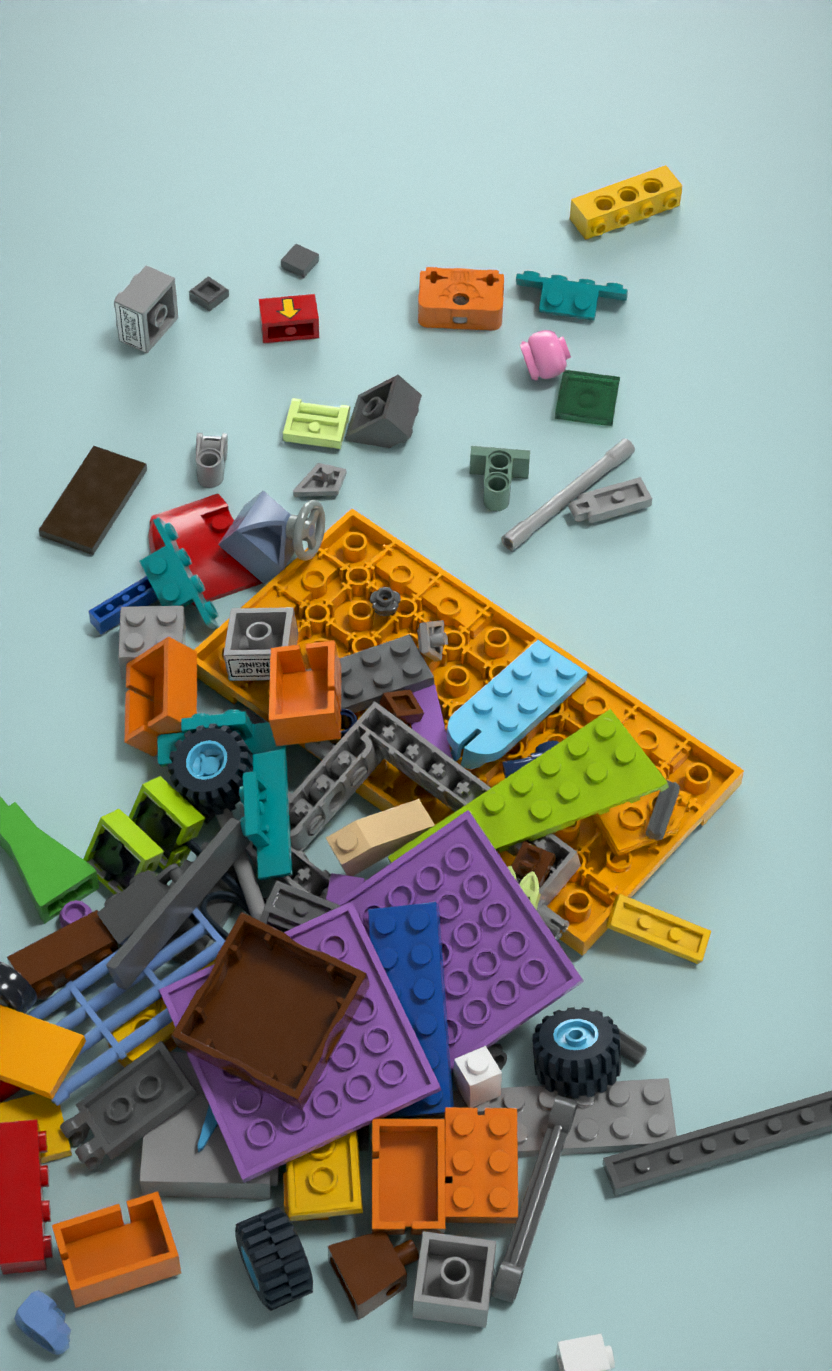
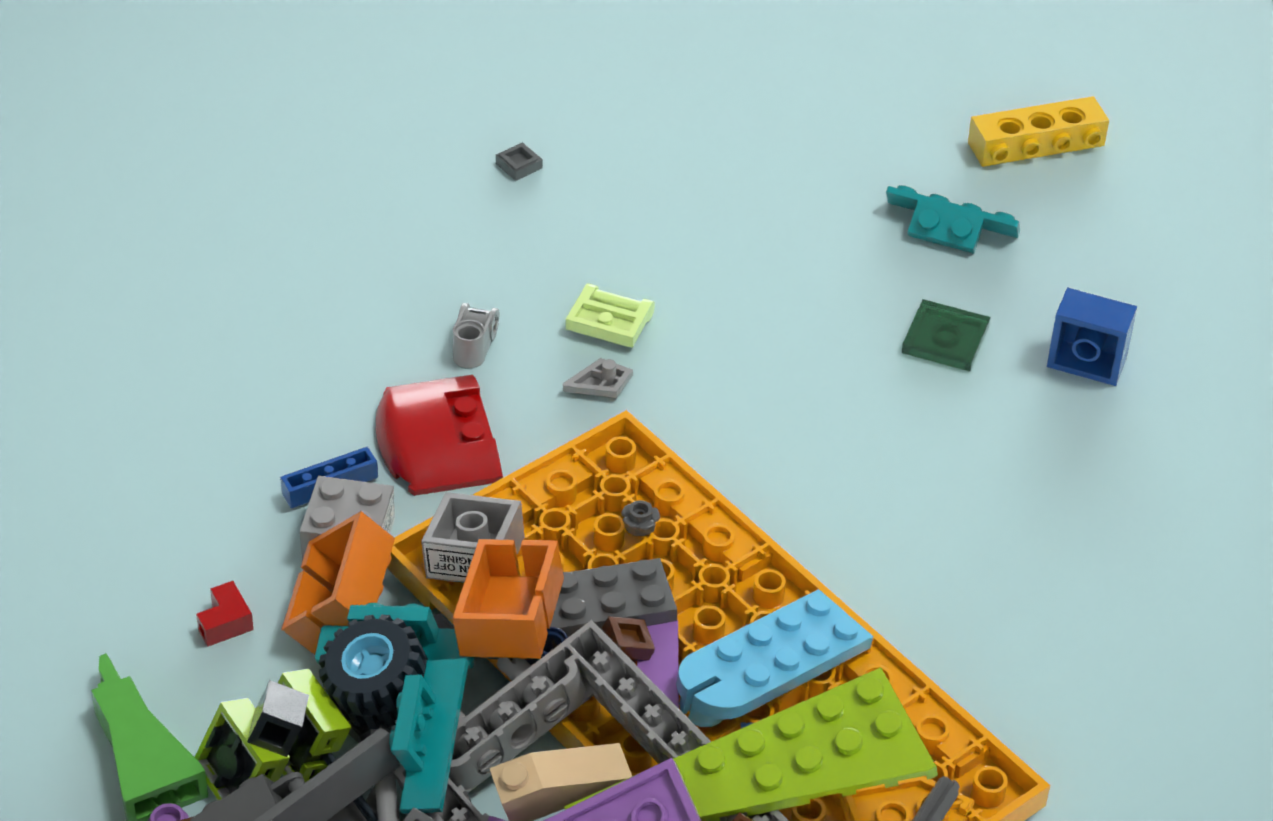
camera: 10 degrees right, 10 degrees down
(76, 735) = (227, 617): none -> red piece
(93, 500) = (322, 360): dark brown tile -> none
(146, 309) = (438, 163): light grey brick -> none
(149, 823) = (278, 718): none -> brick
(172, 578) = (390, 453): teal bracket -> none
(268, 535) = (520, 422): sand blue piece -> none
(289, 318) = (605, 198): red brick -> none
(299, 260) = (634, 141): dark grey tile -> none
(384, 414) = (694, 316): dark grey slope -> none
(432, 639) = (686, 567): light grey piece -> none
(460, 298) = (815, 206): orange axle -> none
(498, 468) = (816, 398): sand green tile -> none
(525, 528) = (836, 468): light grey piece -> none
(545, 355) = (902, 278): bright pink piece -> none
(611, 501) = (949, 452): light grey hinge -> none
(704, 384) = (1091, 336): none -> blue brick

